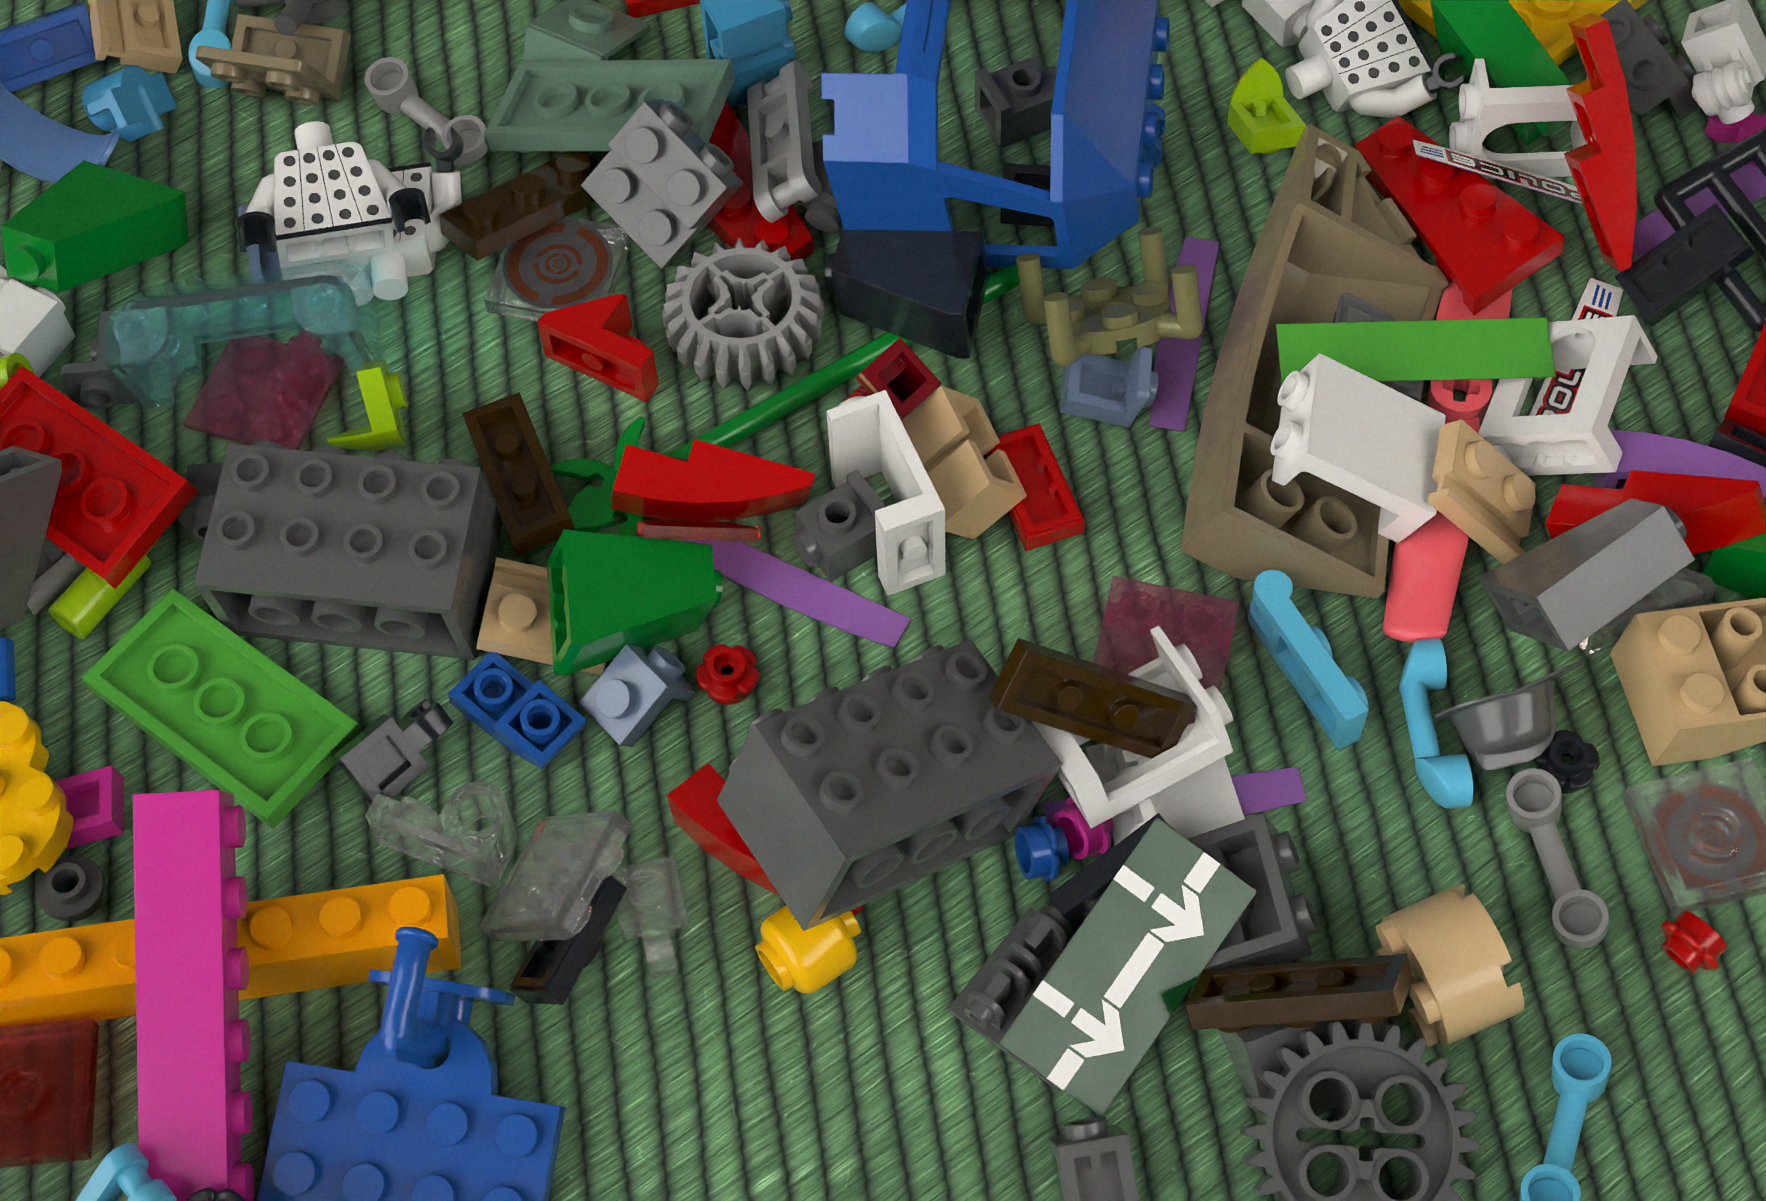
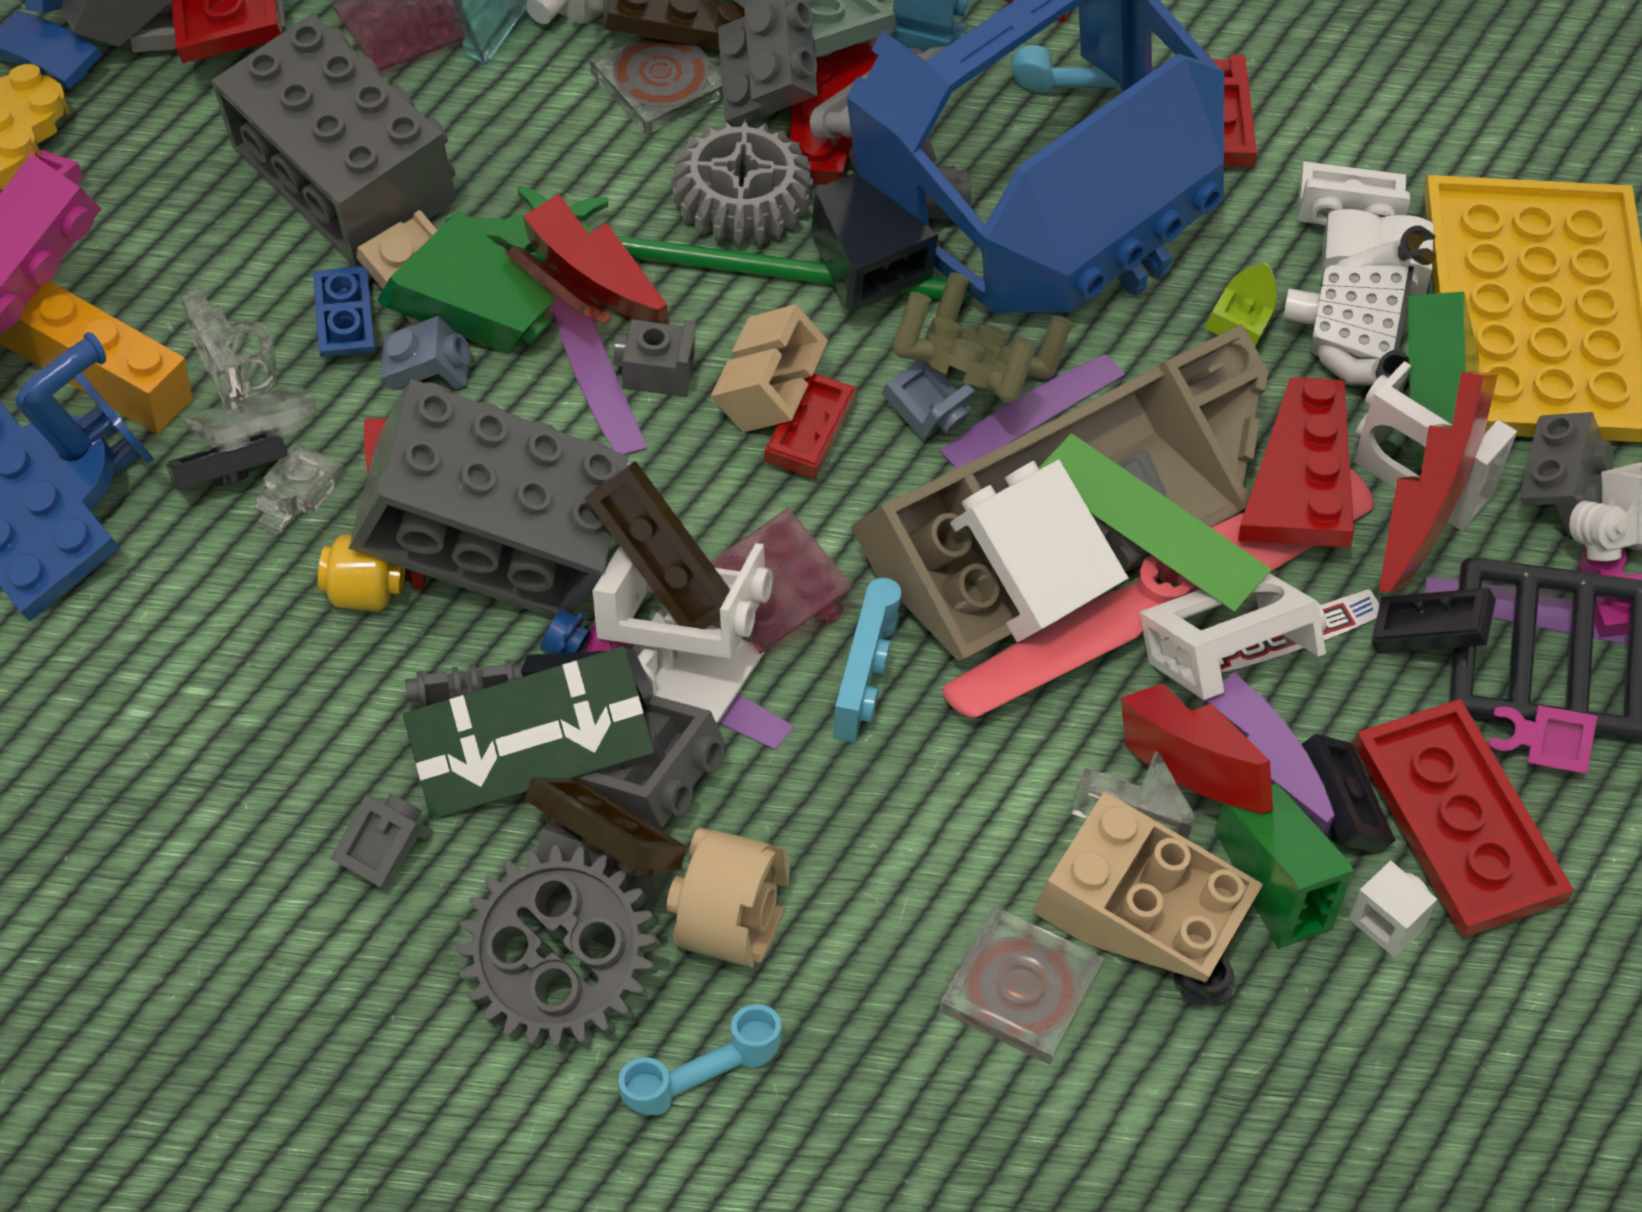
camera: 35 degrees right, 5 degrees down
(91, 599) = (165, 67): lime cylinder -> none
(222, 707) = (177, 182): bright green plate -> none
(383, 398) = (454, 75): lime plate -> none
(387, 754) = (236, 278): black plate -> none
(518, 473) = (493, 172): dark brown plate -> none
(597, 343) = (632, 134): red slope -> none
(727, 688) = (504, 389): red plate -> none
(901, 375) = (770, 281): dark red leg -> none
(910, 533) = (685, 377): white panel -> none
(1444, 777) = (937, 726): medium azure bar -> none
(1481, 491) = (1101, 646): tan plate -> none
(1498, 171) = (1369, 466): sticker -> none
(1508, 725) = (956, 798): dark grey piece -> none
(1535, 808) = (918, 869): light grey bar -> none
(1584, 757) = (969, 872): black plate -> none
(1589, 573) = (1101, 739): slope -> none
(1692, 942) = (922, 1028): red plate -> none

